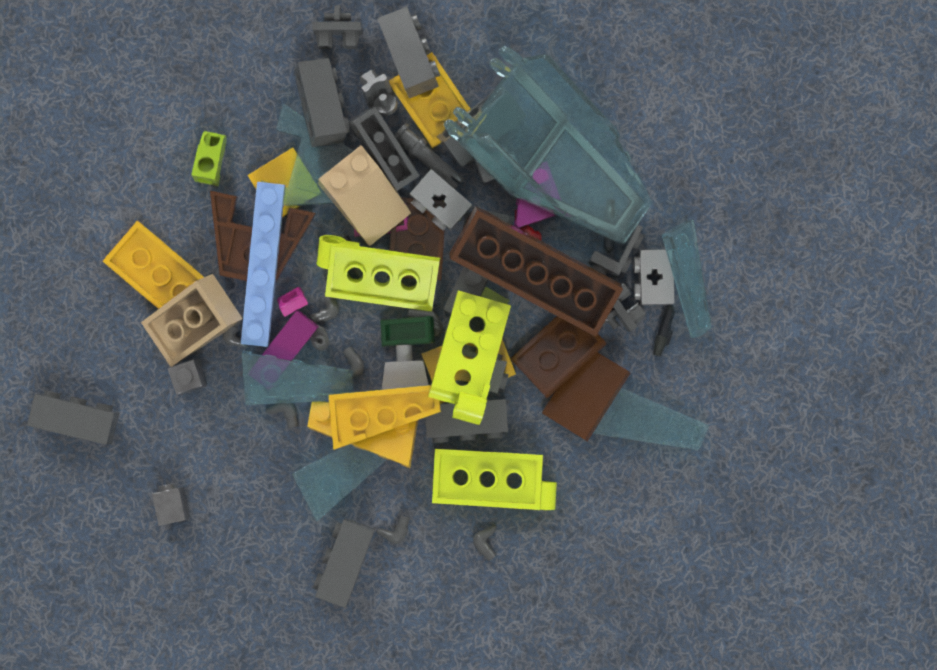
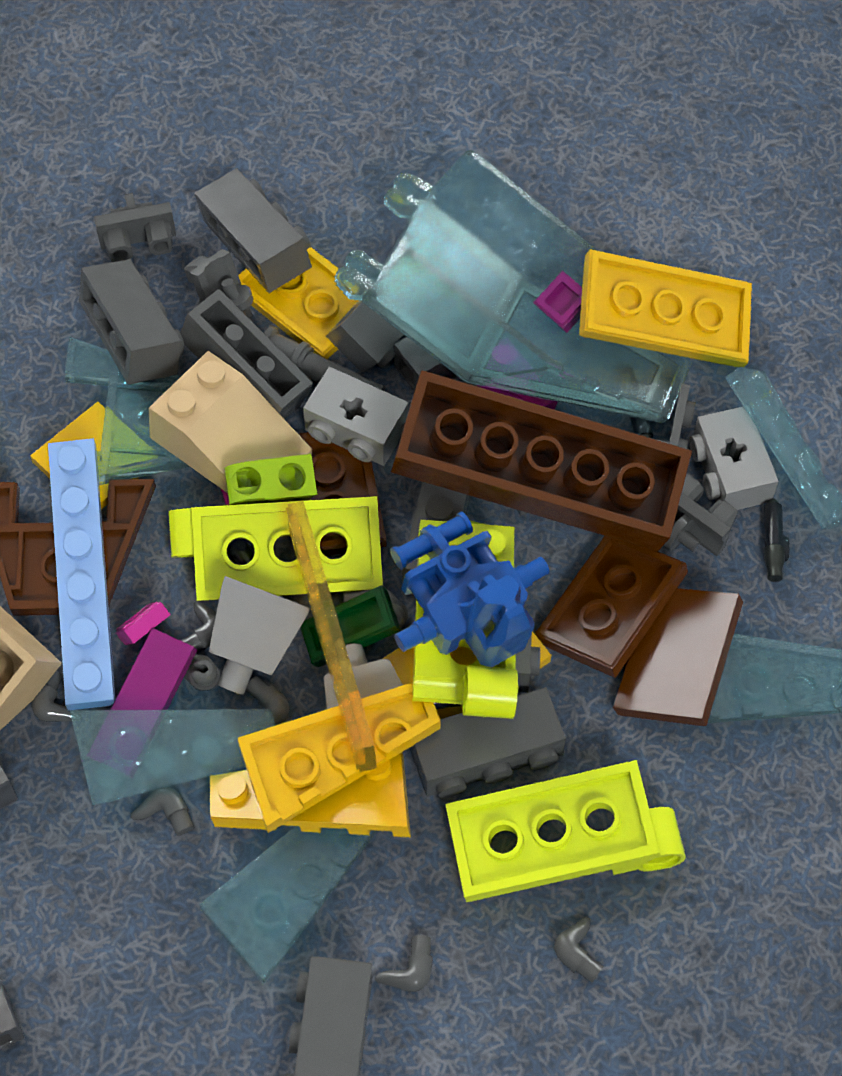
camera: 15 degrees left, 25 degrees down
(353, 324) = (252, 631): none -> light grey torso
(380, 237) = (271, 480): none -> lime leg
(391, 359) = (331, 638): none -> clear yellow tile
(470, 351) = (466, 593): none -> blue piece
(584, 150) = (561, 301): none -> magenta tile
(644, 170) = (665, 309): none -> yellow tile

